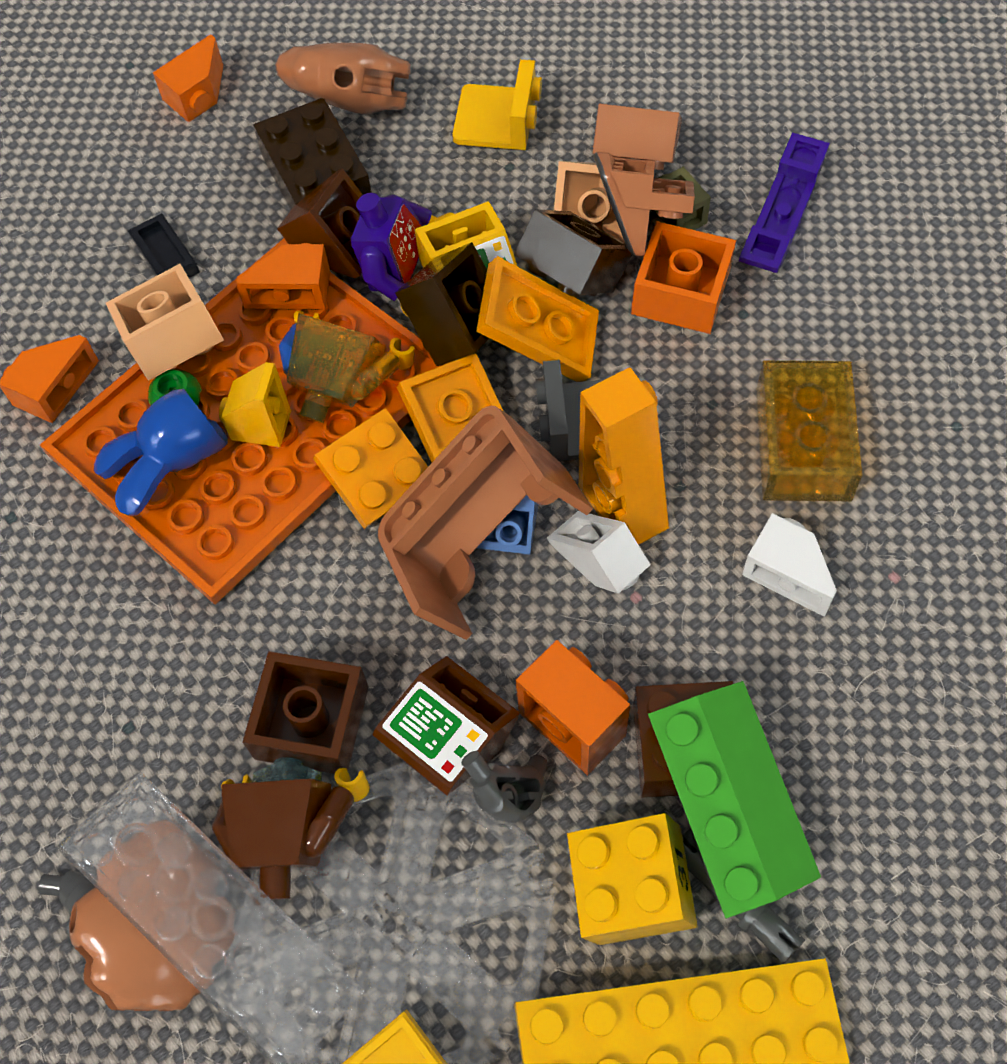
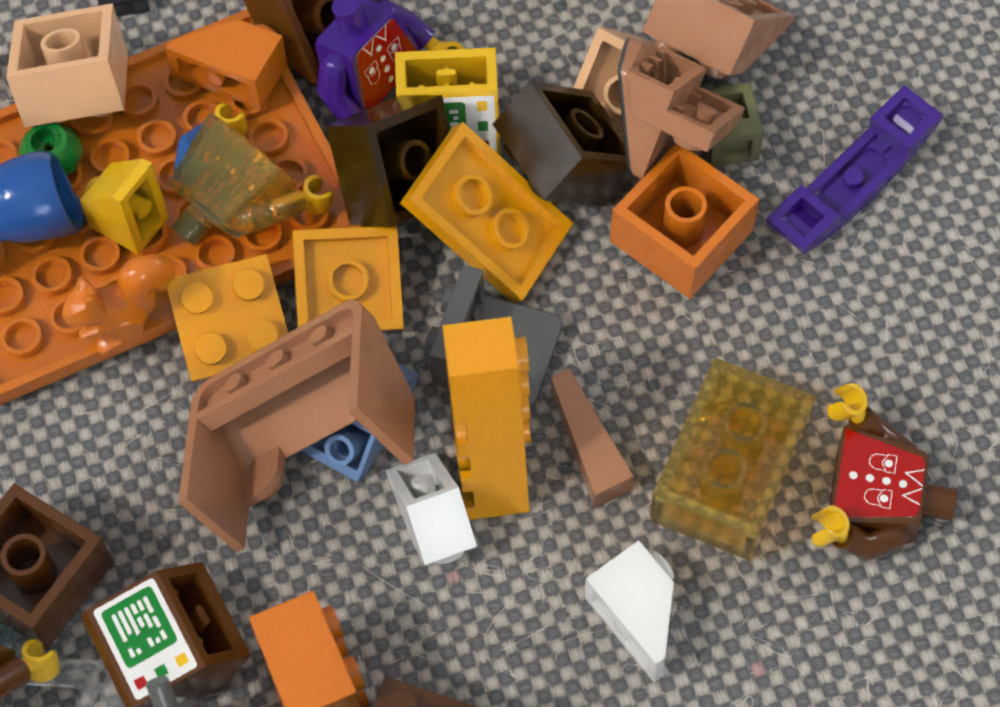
camera: 20 degrees right, 0 degrees up
(290, 489) = (121, 308): none -> orange animal
(697, 464) = (595, 452): none -> nougat piece
(915, 410) = (876, 484): none -> torso

